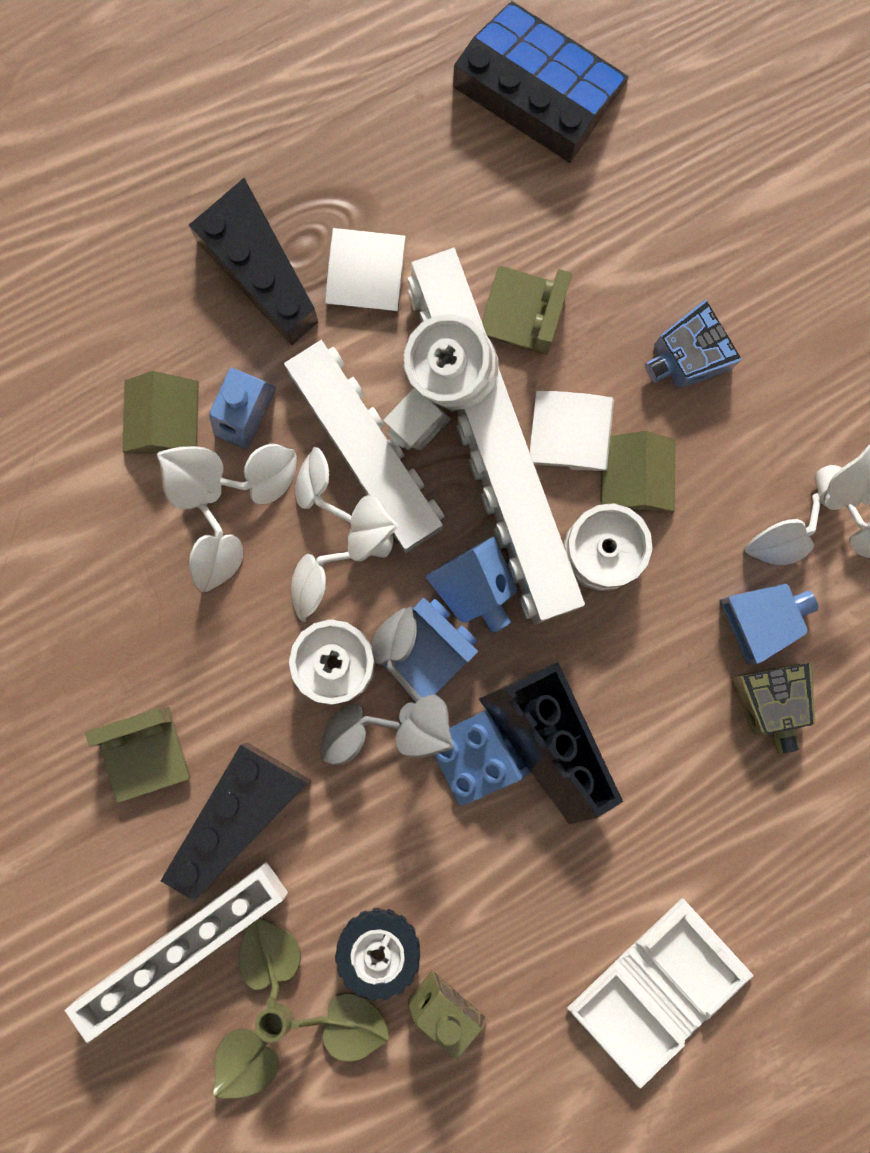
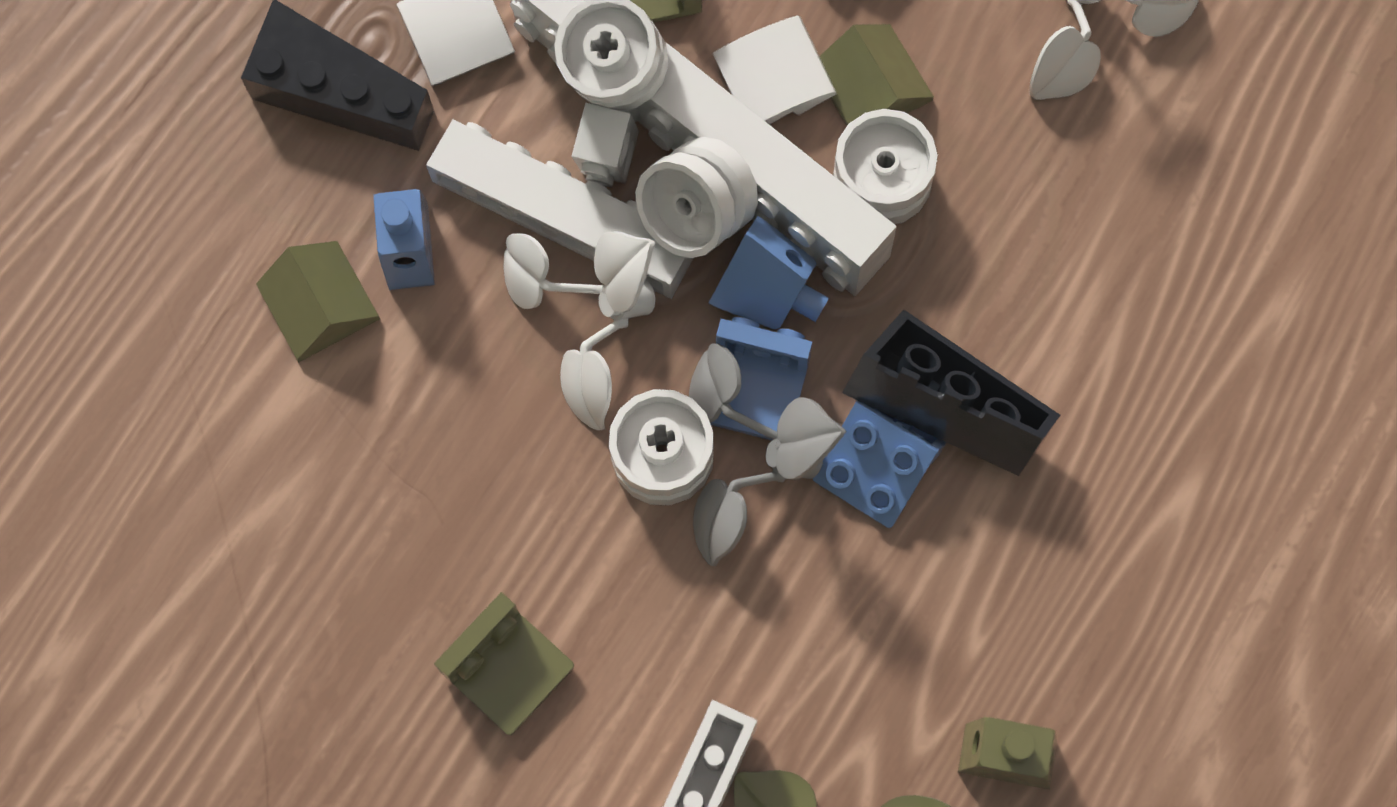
camera: 20 degrees left, 10 degrees down
(195, 478) = (402, 314): white plant -> none
(237, 811) = (650, 667): black wedge -> none
(371, 976) = (876, 754): black wheel -> none
(455, 501) = (696, 197): none -> white wheel
(660, 992) = (1225, 603): white piece -> none
(767, 620) = (1096, 150): medium blue torso -> none
(778, 702) = (1160, 228): torso -> none

